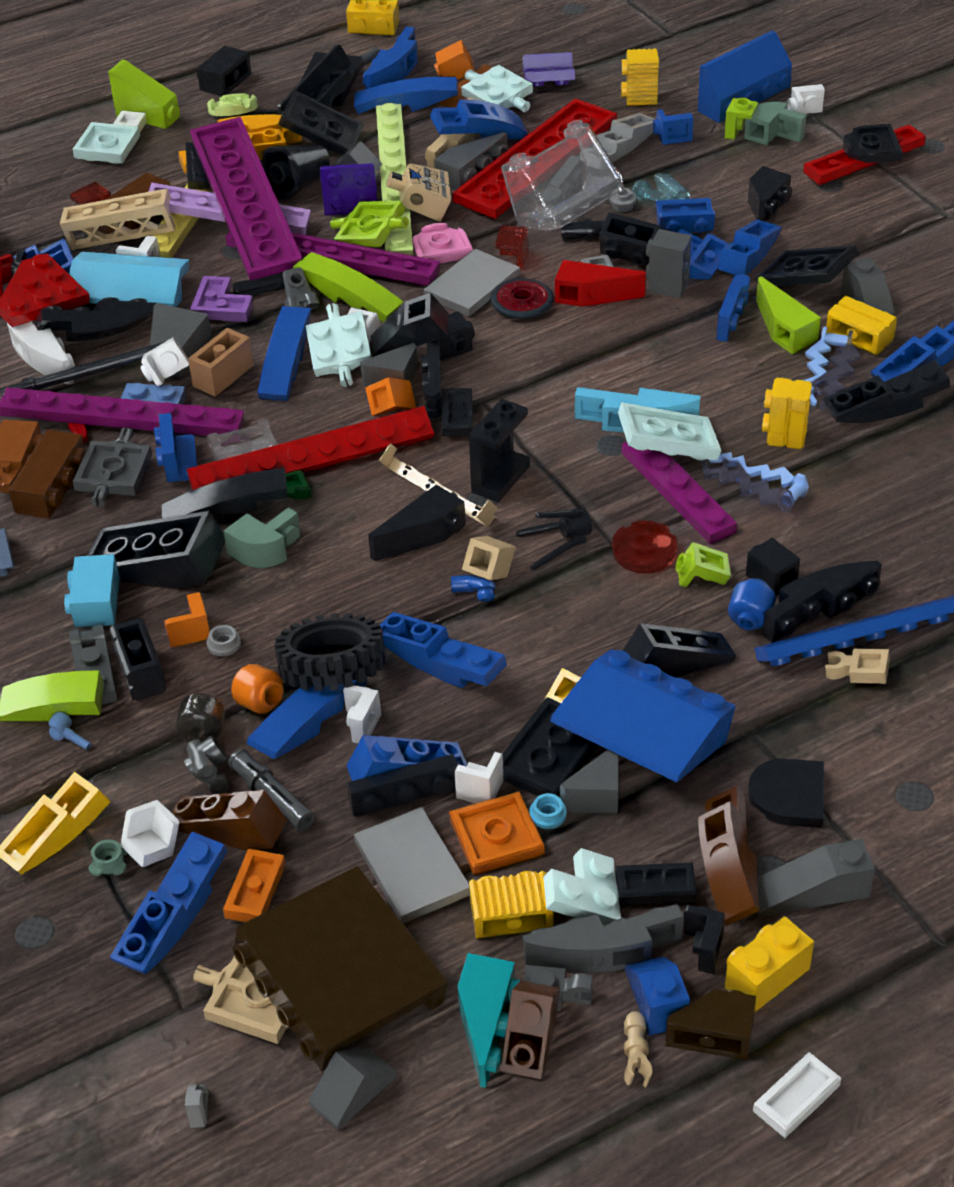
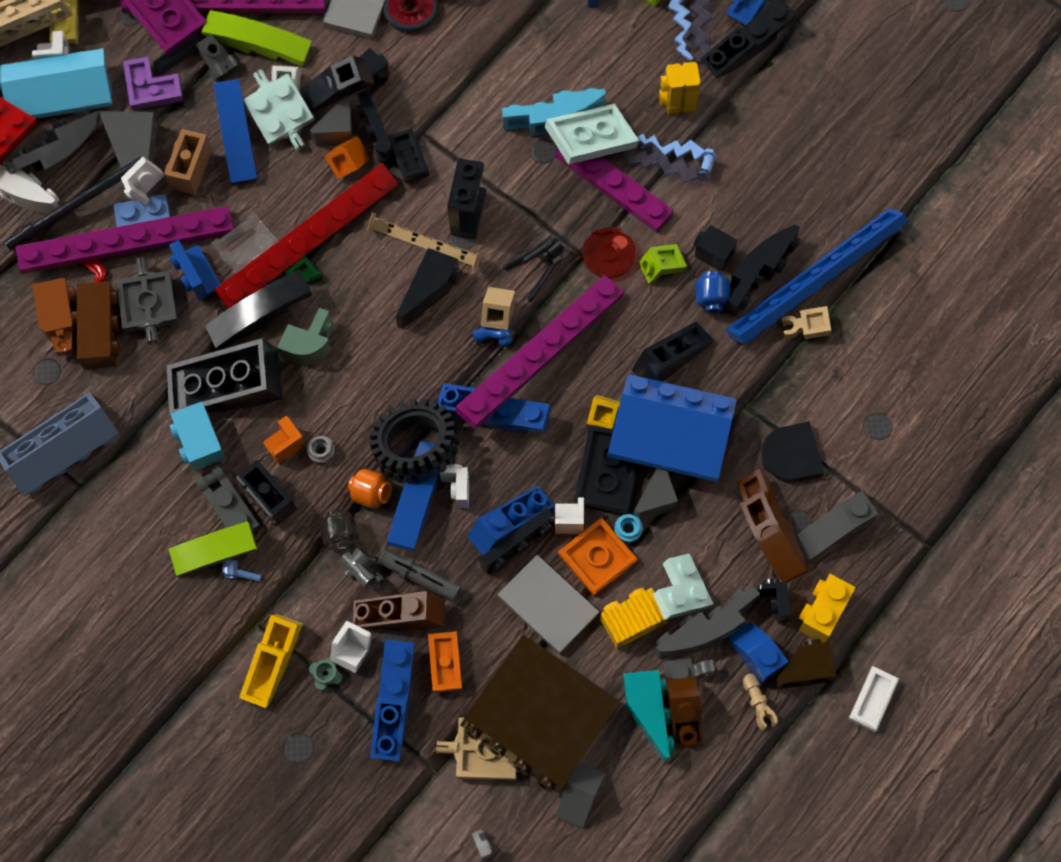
camera: 20 degrees left, 25 degrees up
(515, 606) = (539, 352): none -> magenta plate
(656, 883) = (727, 565): black plate -> none

